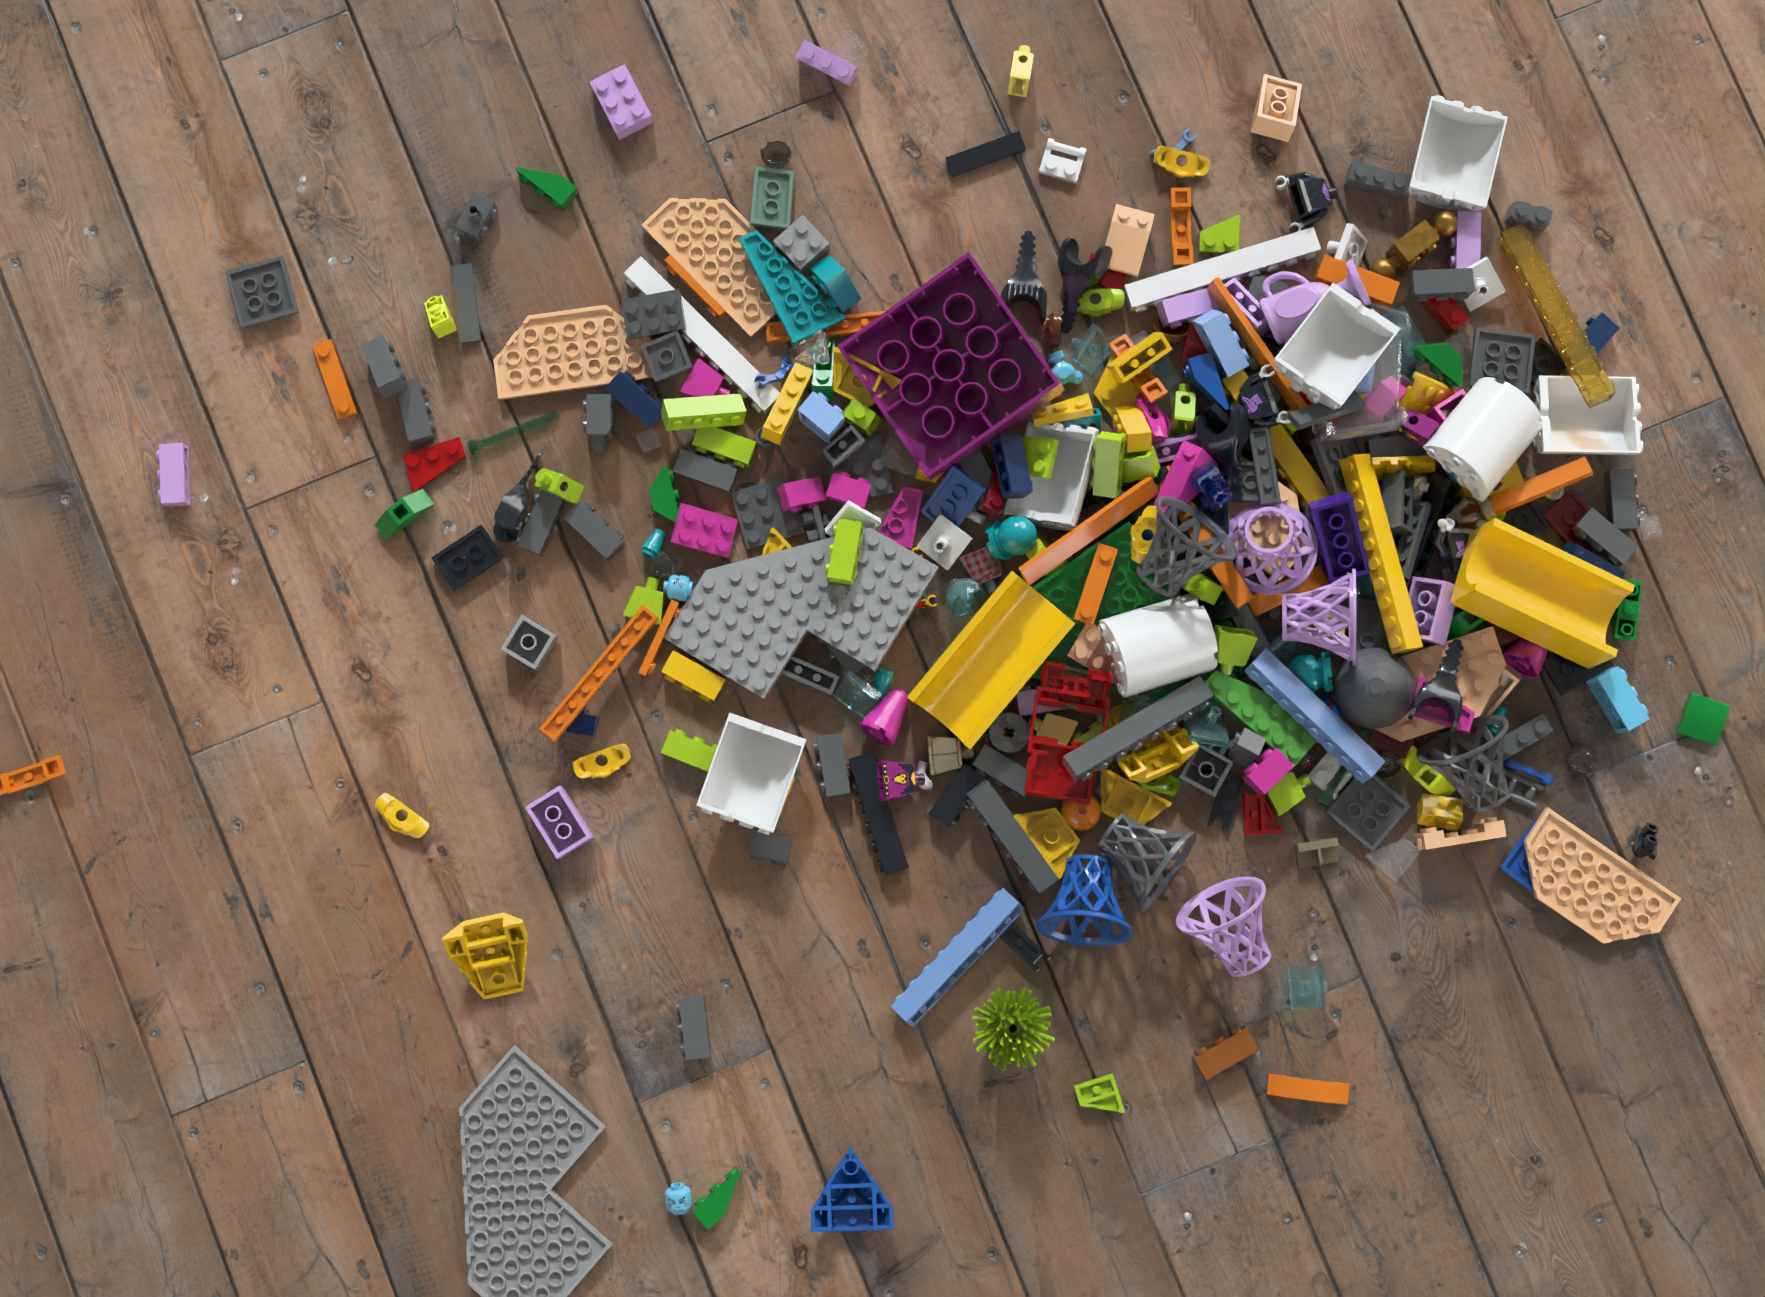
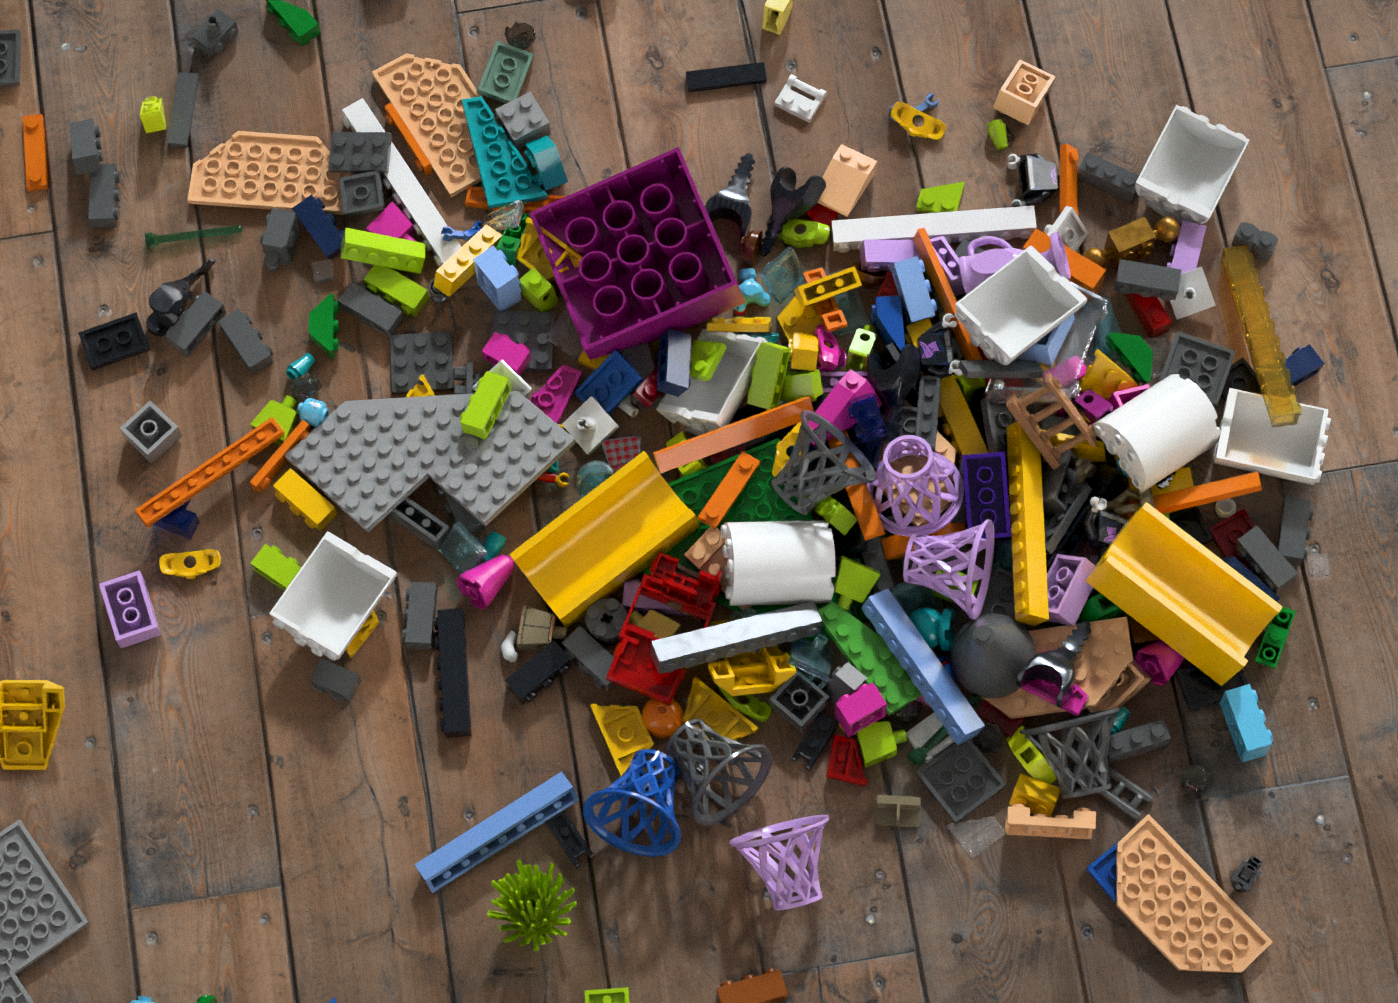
camera: 15 degrees right, 15 degrees down
(403, 513) = (63, 285): green slope -> none
(431, 461) = (102, 246): red wing -> none
(550, 482) = (217, 283): lime torso -> none
(694, 1027) = (208, 843): dark grey brick -> none
(704, 530) = (353, 363): dark pink plate -> none
(801, 494) = (459, 348): dark pink brick -> none
(842, 447) = (511, 310): dark grey brick -> none
(897, 780) = (480, 639): torso -> none
(1011, 537) = (656, 430): teal tile -> none
(1012, 836) = (583, 721): dark grey brick -> none
(1181, 226) = (903, 179): orange slope -> none
(1261, 157) = (998, 134): none -> lime cone
(1307, 988) = (853, 943): clear light blue tile -> none
(1339, 192) = (1068, 177): none -> orange plate
(1378, 469) = (1042, 438): none -> medium nougat fence
(1513, 765) = (1154, 789): blue piece -> none
(1703, 718) = (1335, 765): green slope -> none

